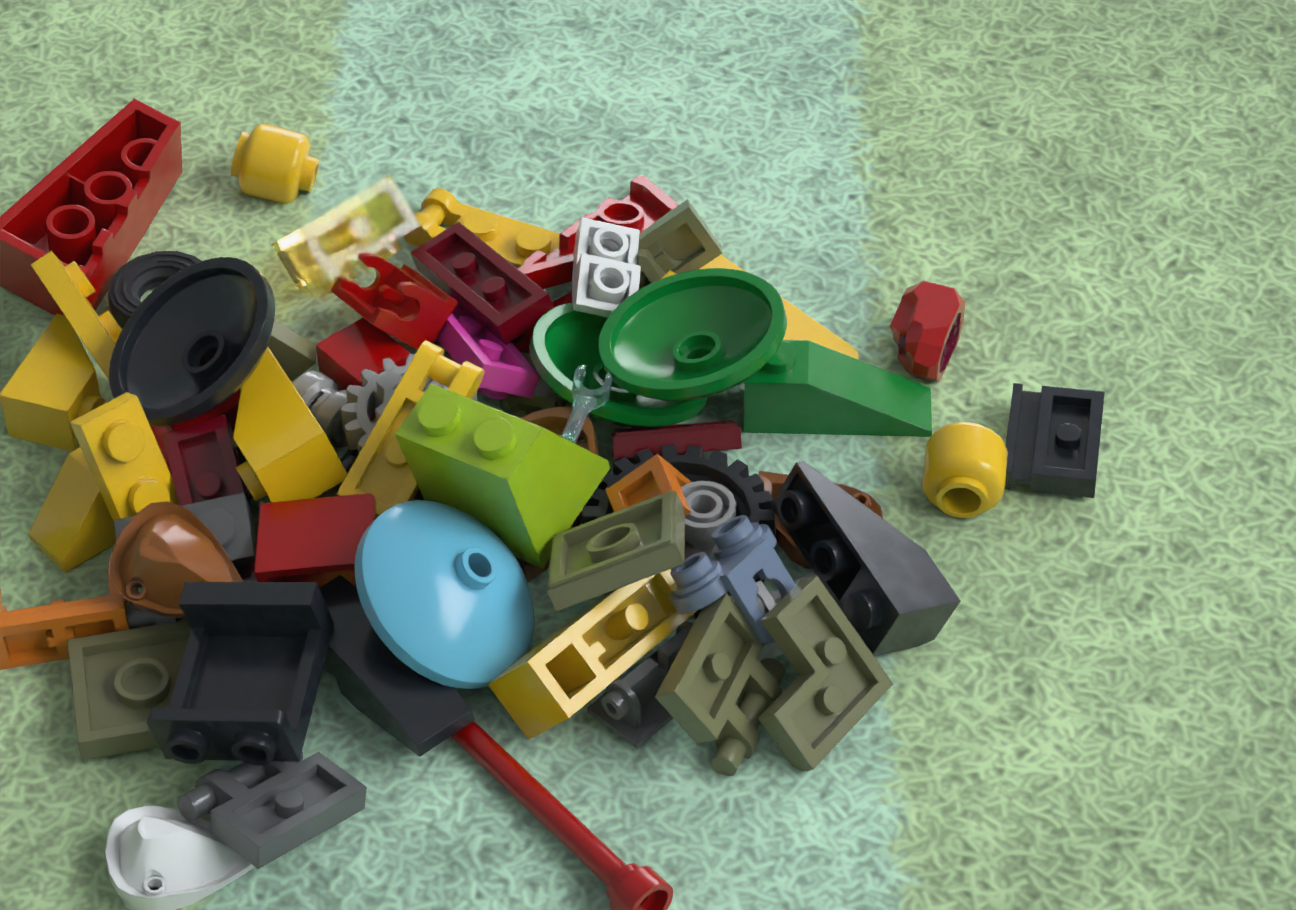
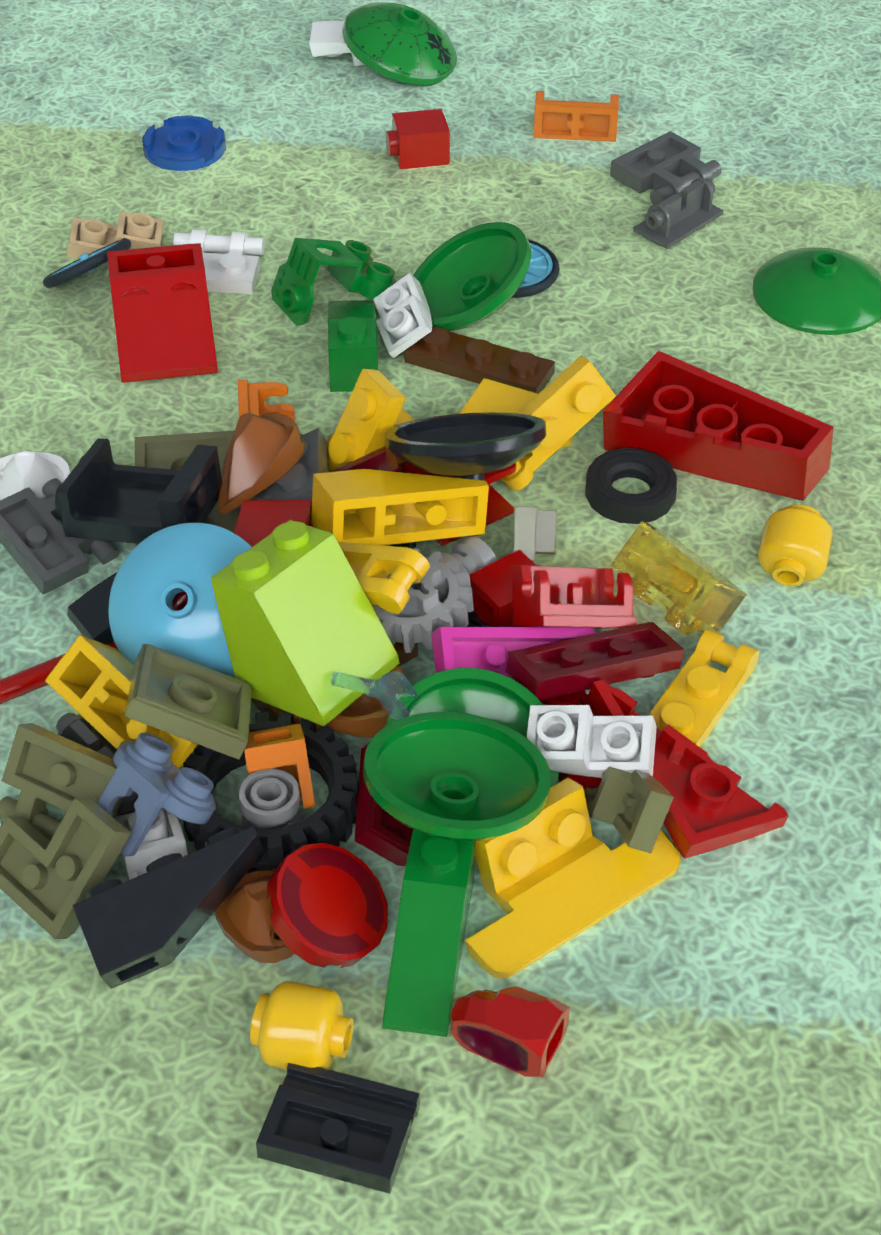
camera: 95 degrees right, 0 degrees up
(830, 455) = (327, 905): none -> red tile

